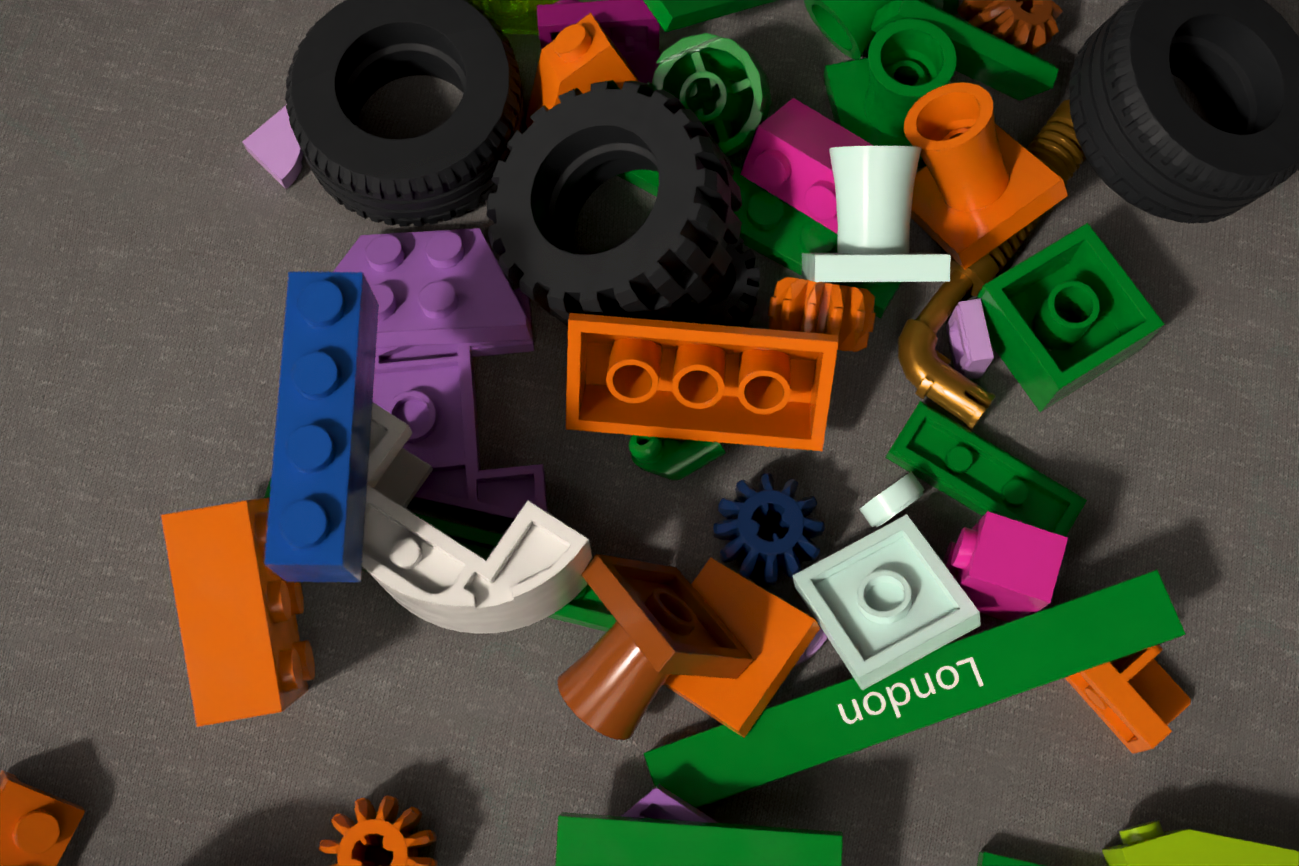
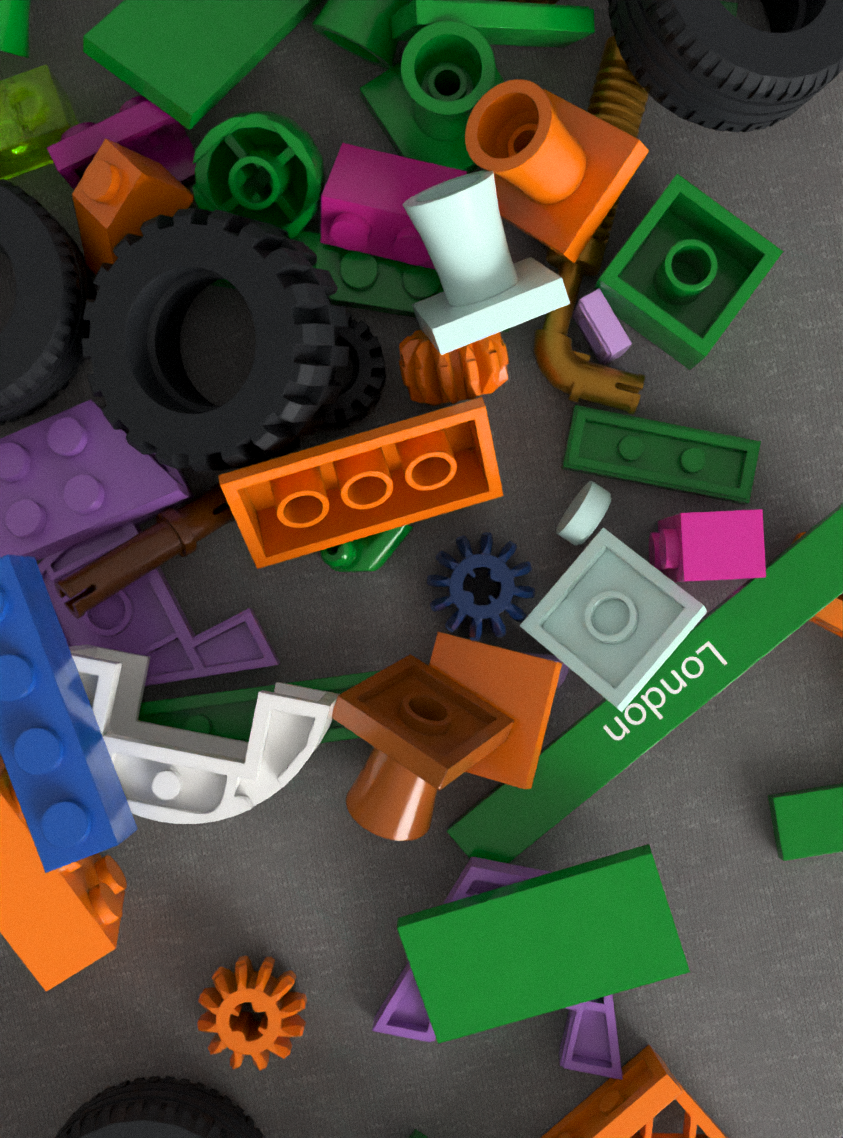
camera: 20 degrees left, 15 degrees up
(499, 370) = (171, 536): none -> reddish brown pin

